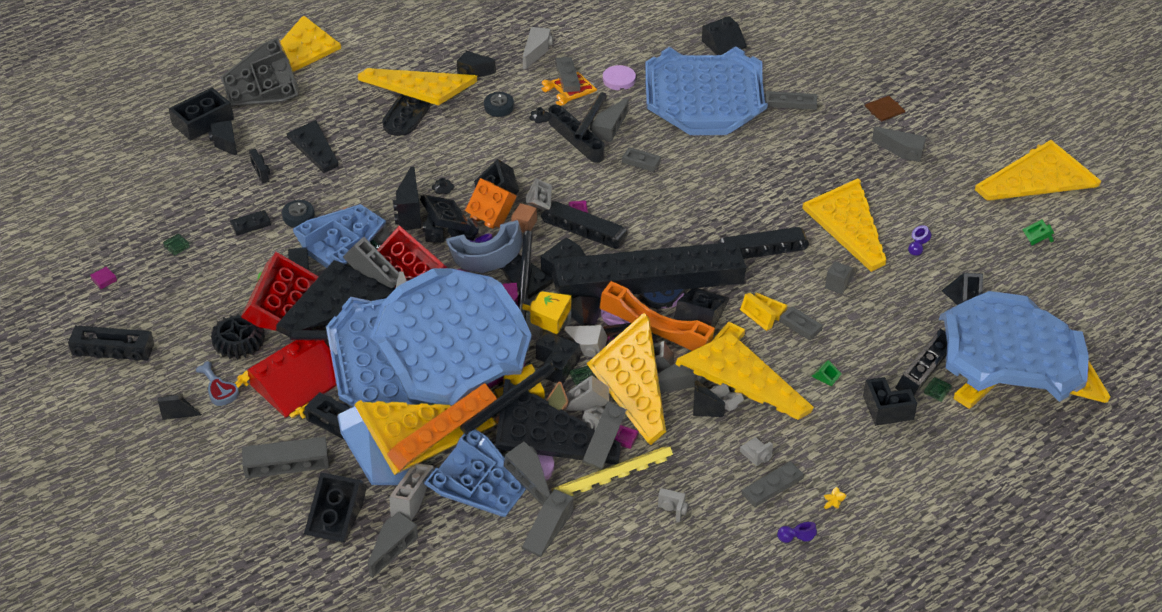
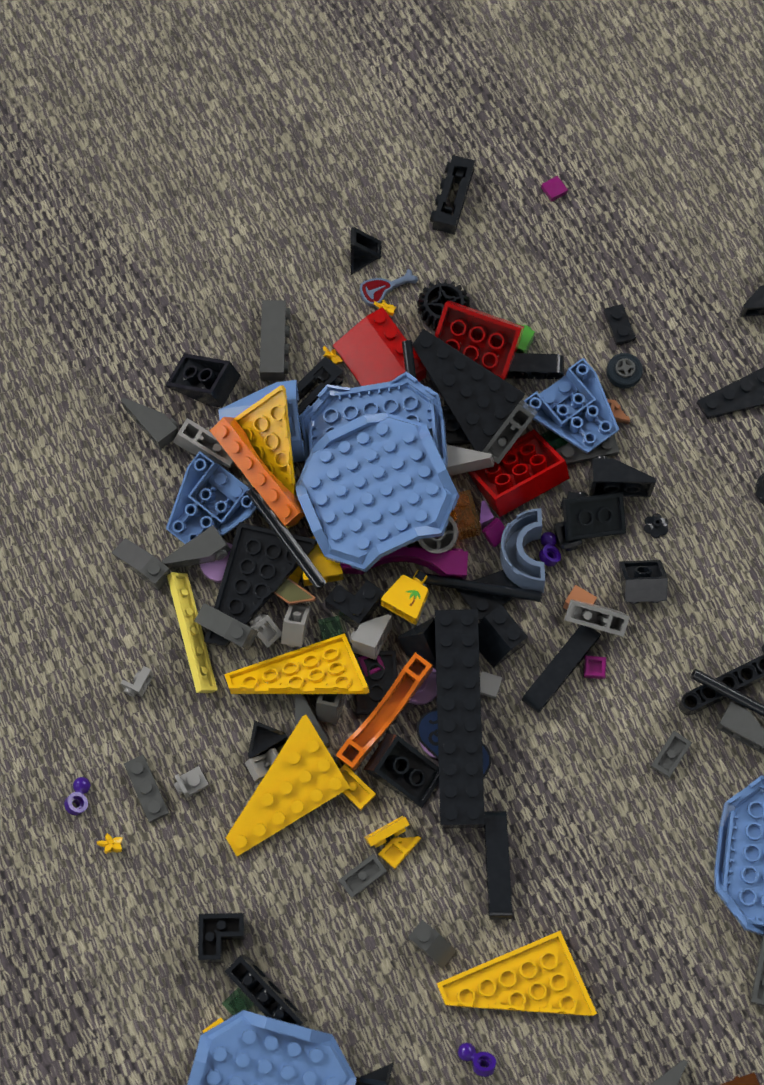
camera: 100 degrees right, 25 degrees up
(176, 244) = (595, 254): clear green tile -> none
(258, 164) = (702, 336): black plate -> none
(490, 204) = (600, 565): orange brick -> none
(626, 436) = (239, 656): magenta tile -> none
(827, 373) = (285, 886): green slope -> none

